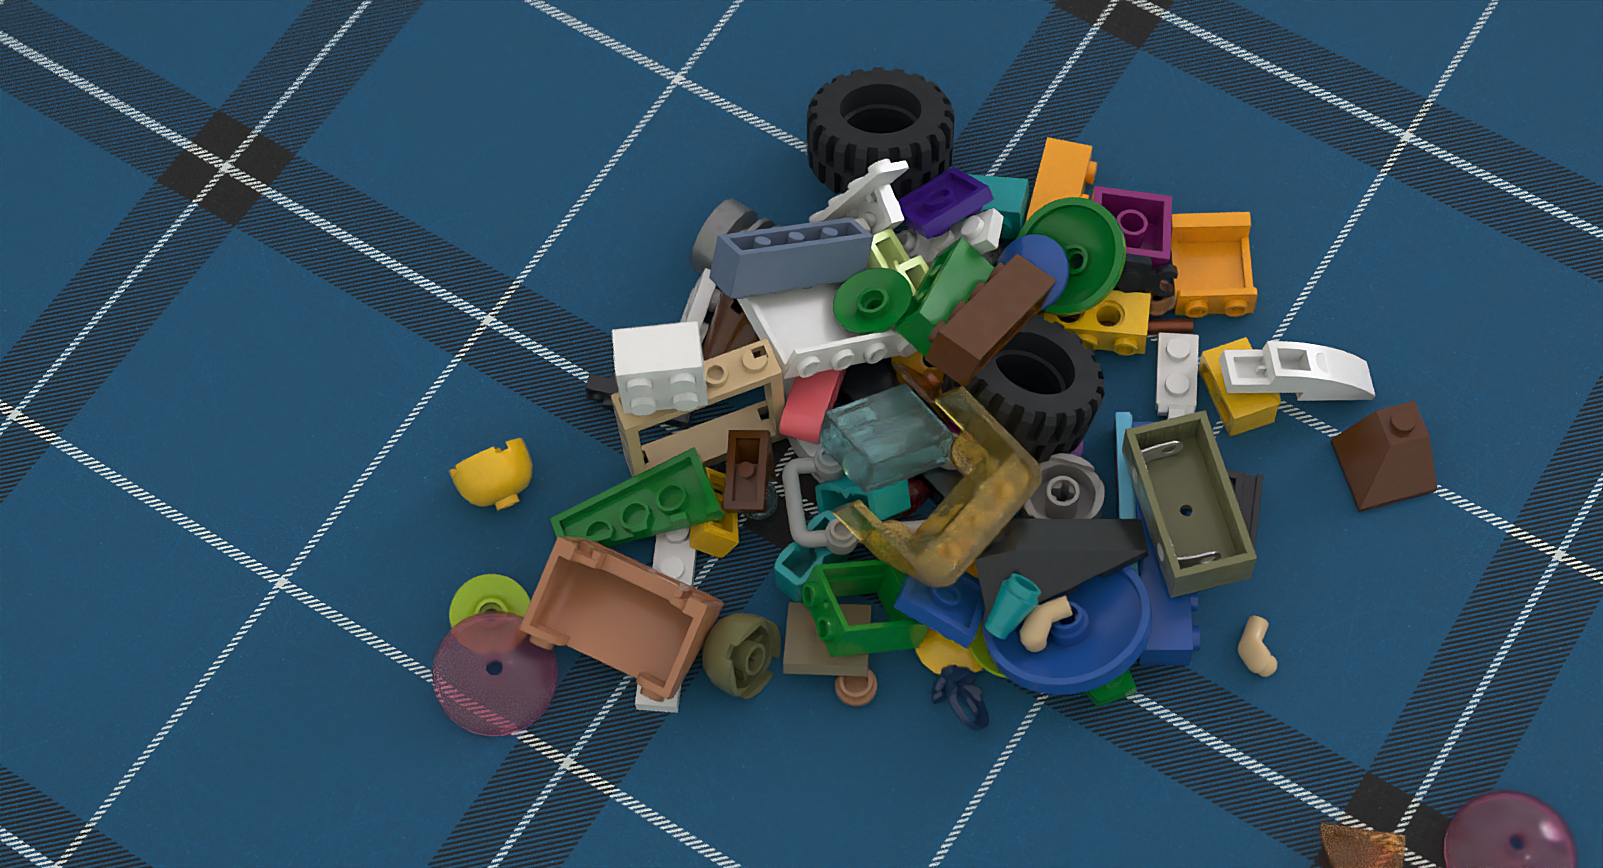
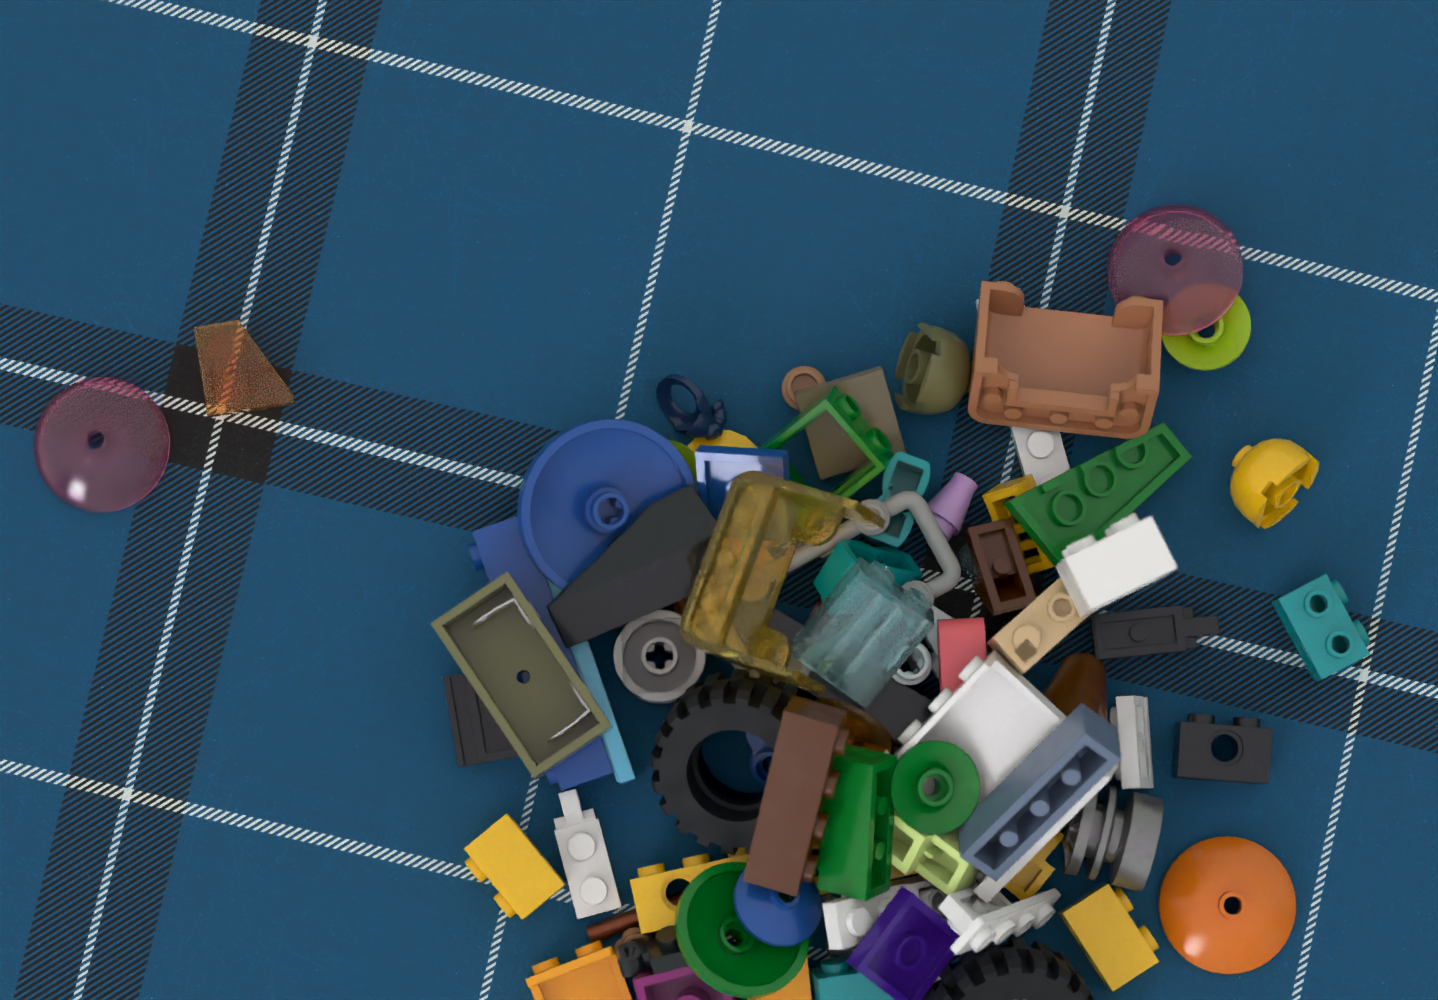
camera: 155 degrees right, 20 degrees up
(505, 355) = (1322, 627): none -> teal brick
(612, 276) = (1250, 750): none -> black brick
(669, 209) = (1194, 900): none -> orange dish
(767, 545) = (952, 503): none -> lavender cone
(773, 186) = (1110, 936): none -> yellow brick
(1012, 605) = (666, 495): teal cone -> none
(1039, 621) = (634, 493): tan arm -> none
(1252, 649) = (413, 568): tan arm -> none
(1297, 368) = (454, 890): white slope -> none
(1386, 457) = (335, 836): reddish brown slope -> none

